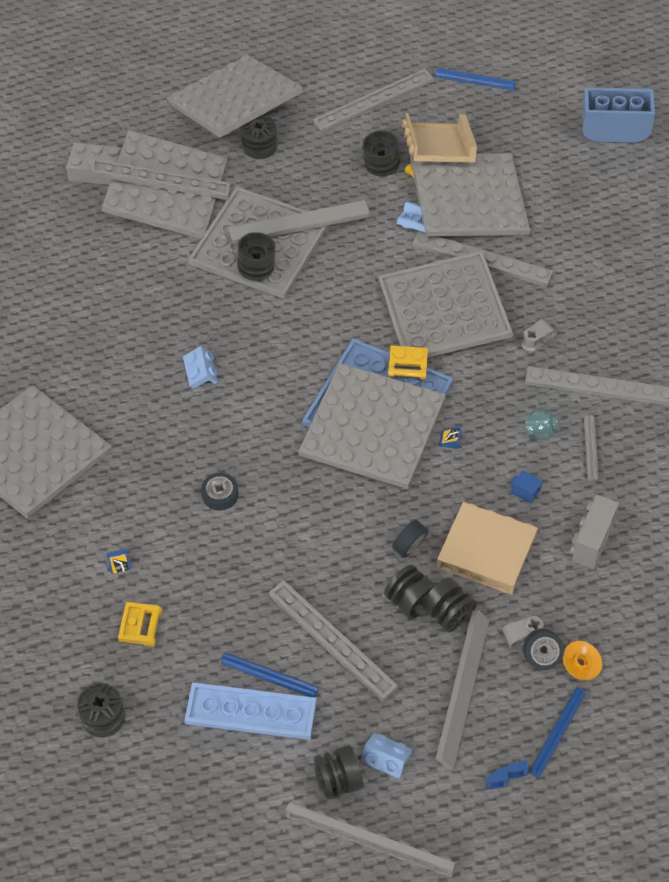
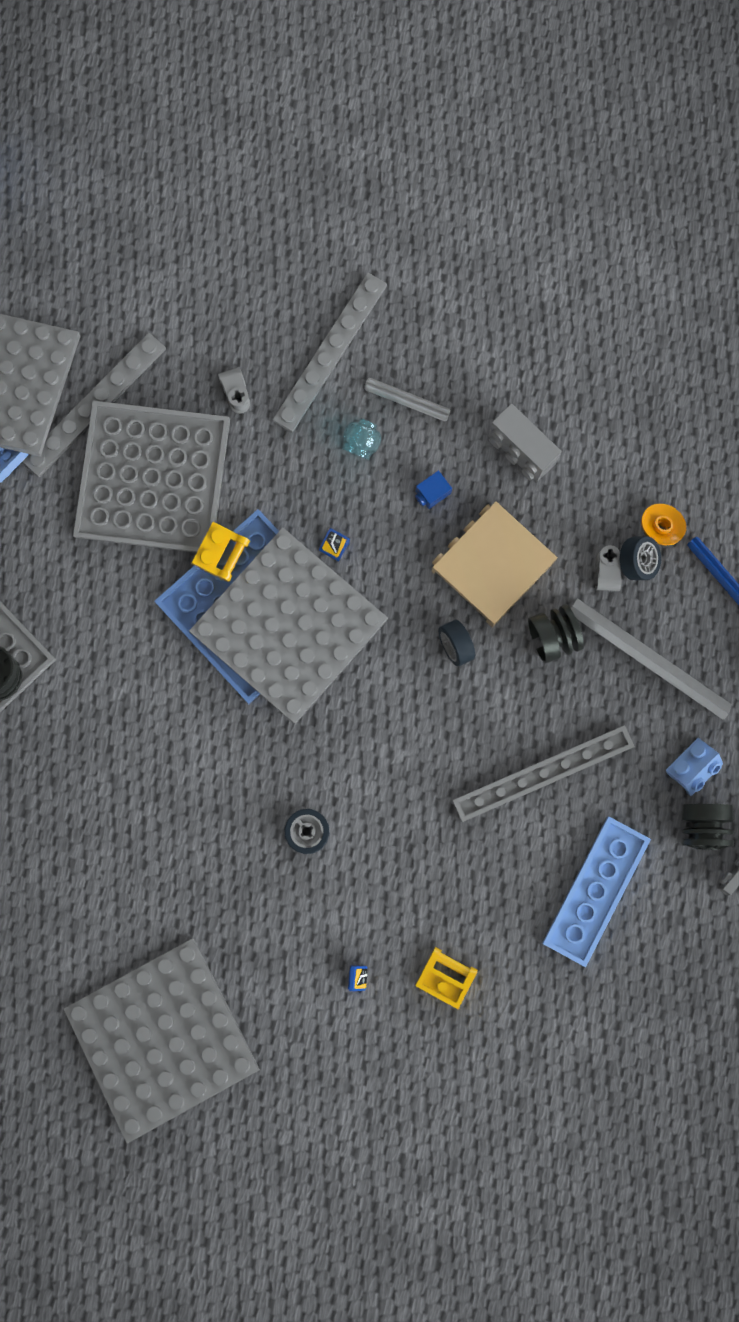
camera: 75 degrees left, 25 degrees up
(102, 720) = (532, 1050): pearl dark grey wheel -> none
(200, 367) = (120, 796): light blue bracket -> none
(269, 675) = (559, 856): blue axle -> none
(408, 590) = (526, 667): pearl dark grey wheel -> none

